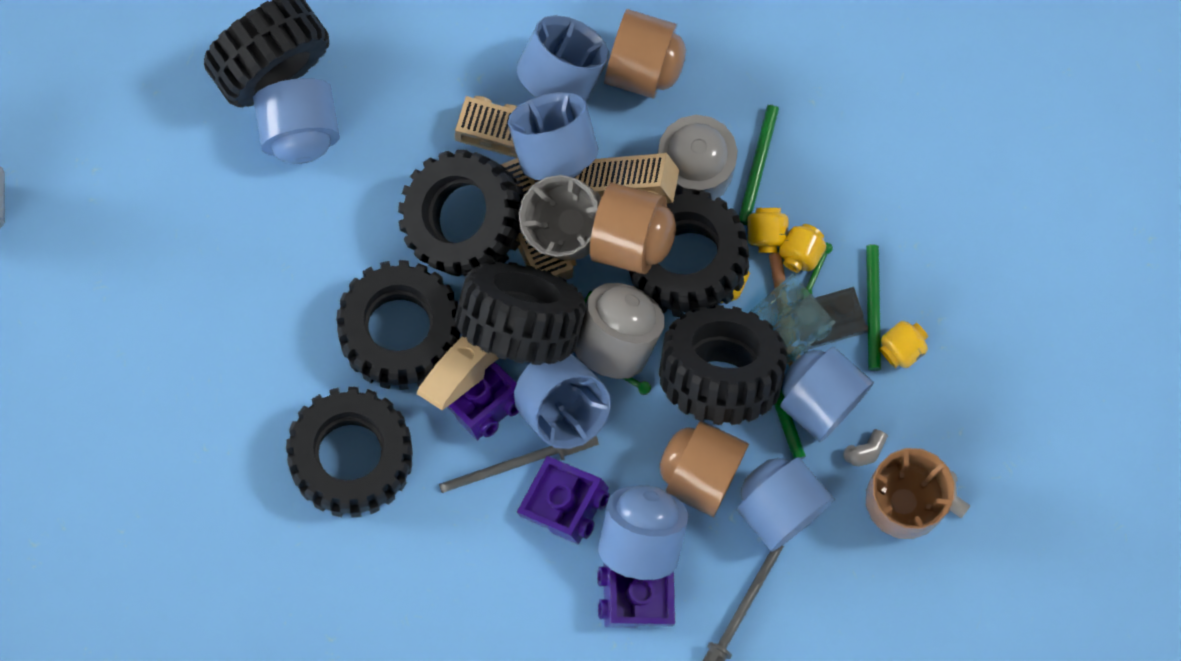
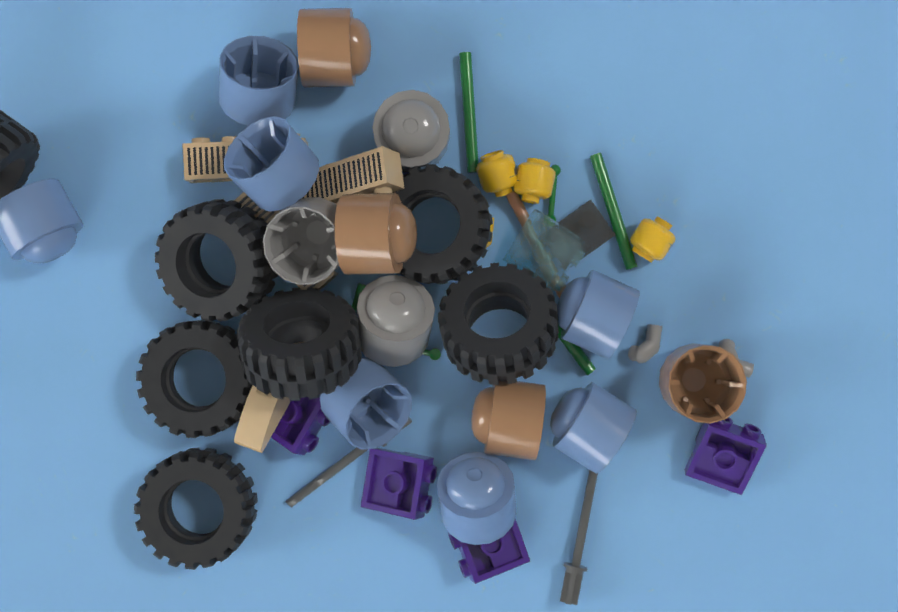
camera: 15 degrees left, 15 degrees up
(913, 584) = (726, 454): none -> dark purple plate

